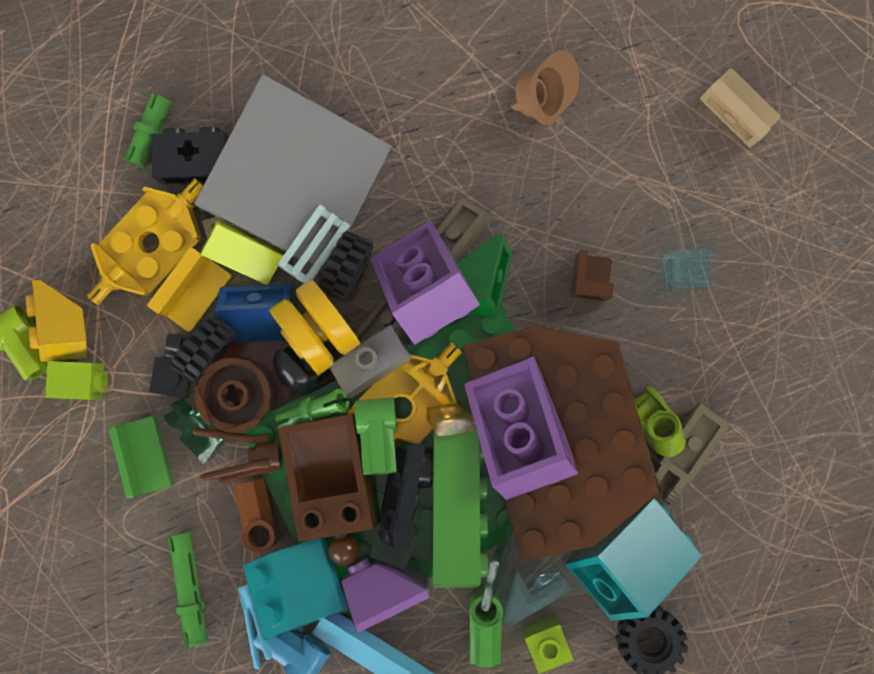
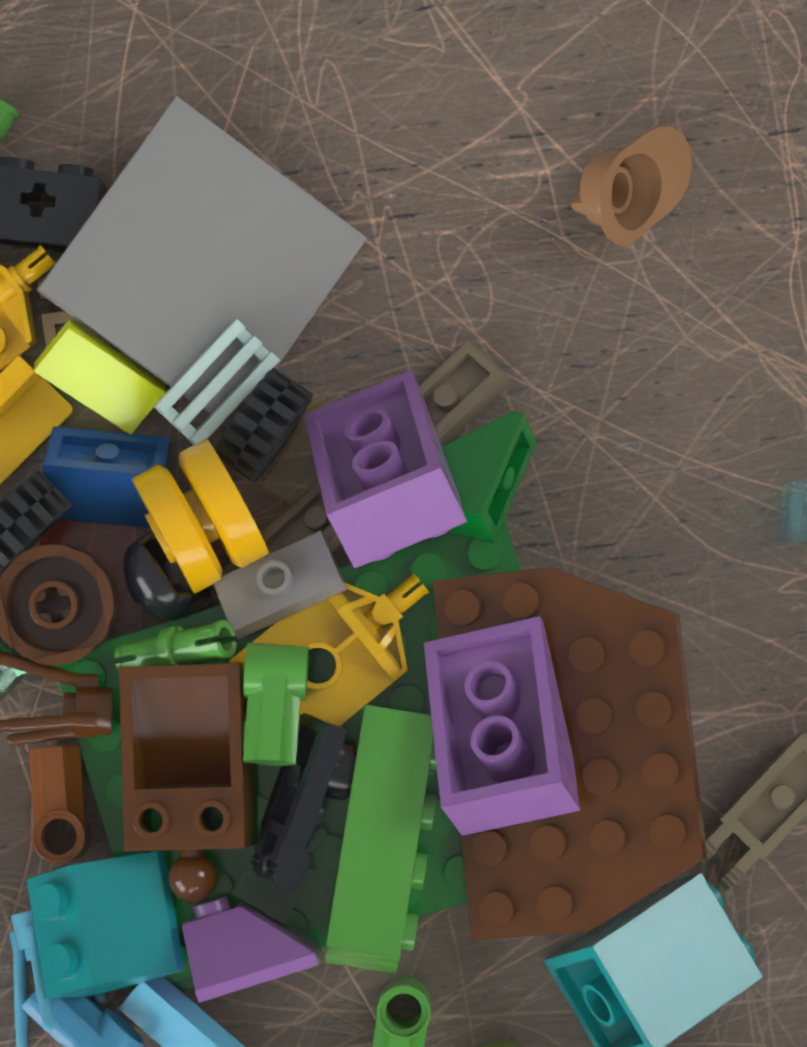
camera: 10 degrees right, 0 degrees up
(450, 419) = (392, 695): clear yellow tile -> none
(497, 567) = (433, 941): clear green piece -> none
(523, 602) = (465, 1007): clear light blue slope -> none
(592, 277) = (660, 502): reddish brown panel -> none
(657, 418) = (725, 746): lime piece -> none

